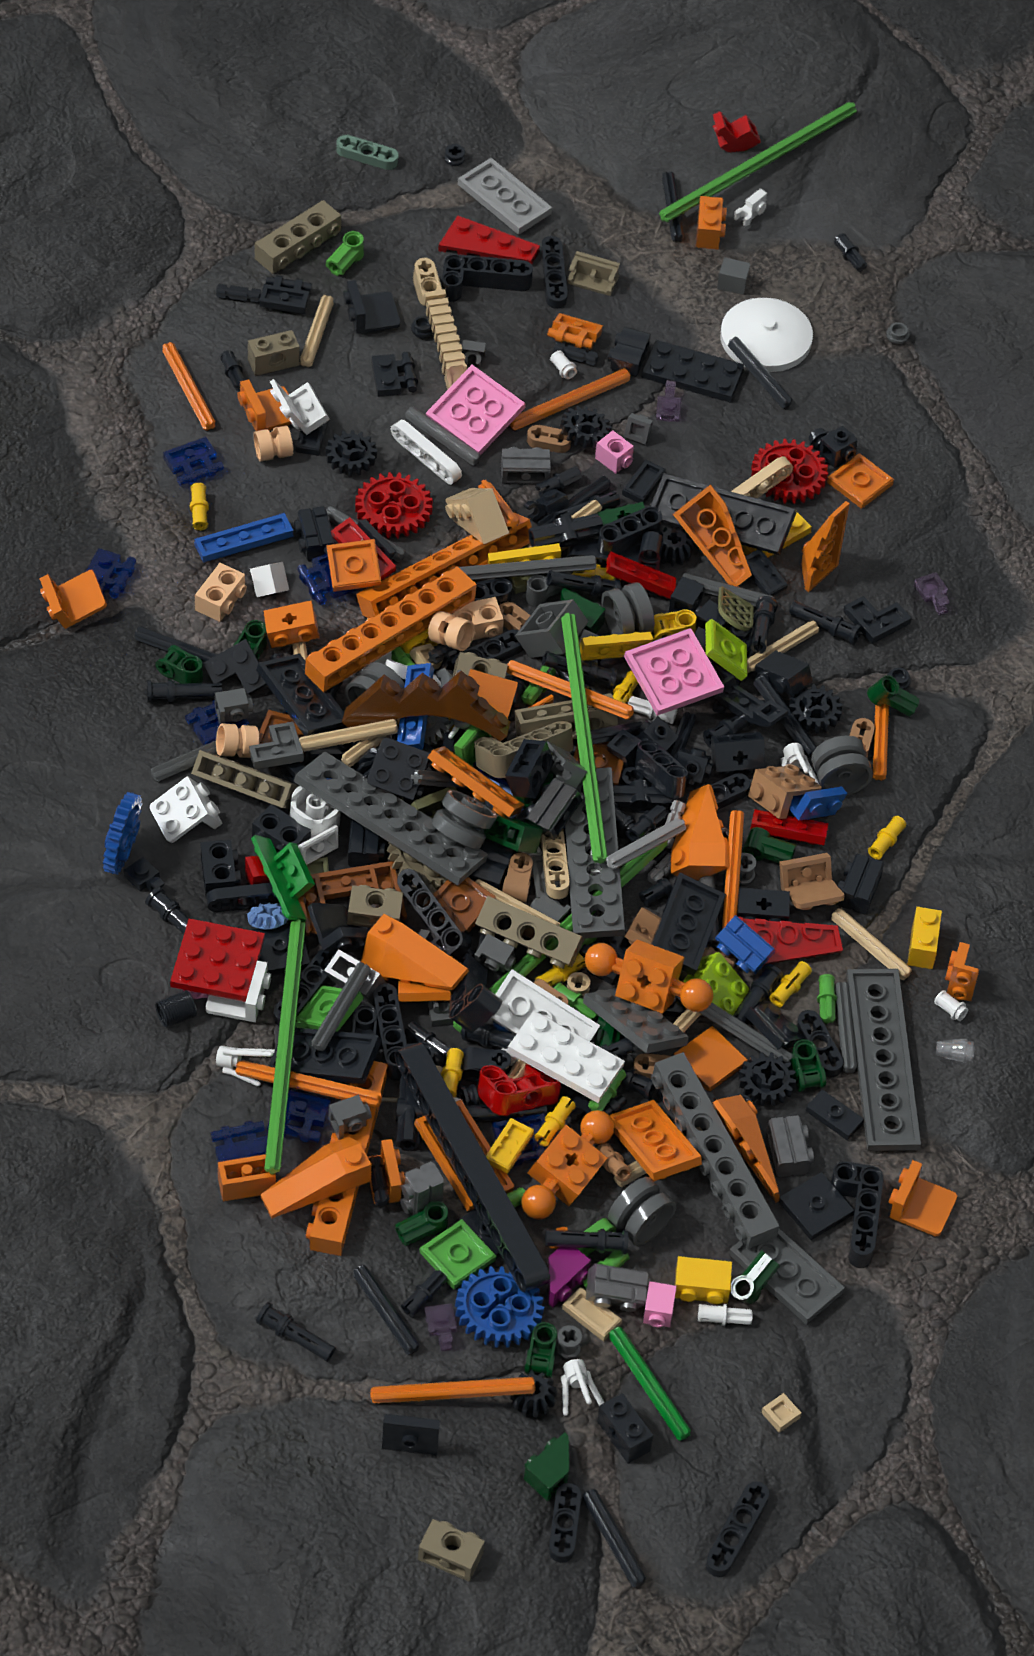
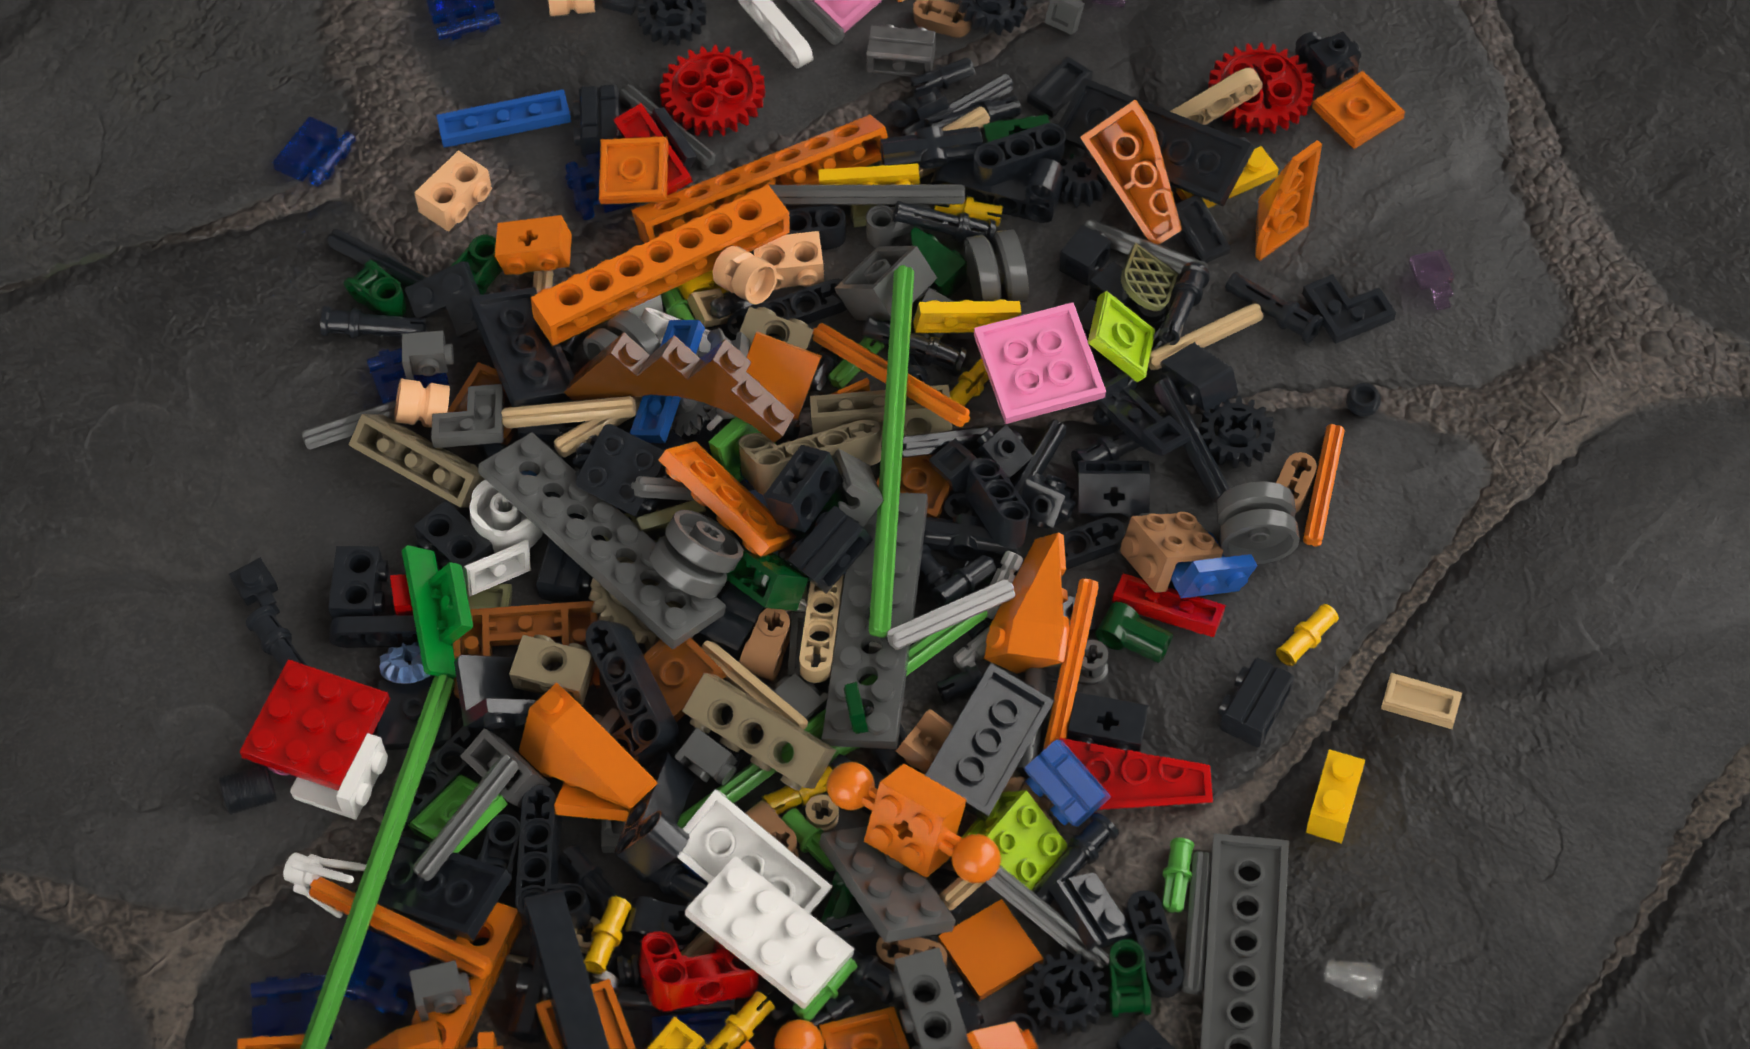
camera: 15 degrees right, 5 degrees up
(73, 599) = (255, 185): orange bracket -> none
(122, 833) = (227, 524): blue gear -> none
(184, 808) = (332, 491): white bracket -> none
(199, 506) = (455, 71): yellow pin -> none
(269, 579) = (524, 178): white panel -> none
(477, 513) = (817, 114): tan wedge -> none
(510, 518) = (850, 102): orange axle -> none
(517, 618) = (836, 267): medium nougat beam -> none
(595, 908) = (855, 708): none -> dark green tile
(614, 452) = (1025, 42): bright pink brick -> none
(632, 571) = (1025, 217): red plate -> none
(644, 707) = (988, 403): white axle -> none
(673, 623) = (1059, 291): yellow piece -> none
(795, 755) = (1196, 501): white plant -> none
(799, 973) = (1144, 830): yellow pin -> none
(810, 881) = (1182, 693): medium nougat bracket -> none
(870, 943) = (1257, 795): tan axle -> none
(889, 692) = (1343, 419): dark green piece -> none
(951, 1005) = (1365, 913): white pin -> none
(960, 976) = (1378, 872): orange bracket -> none
(970, 873) = (1421, 700): none -> tan tile

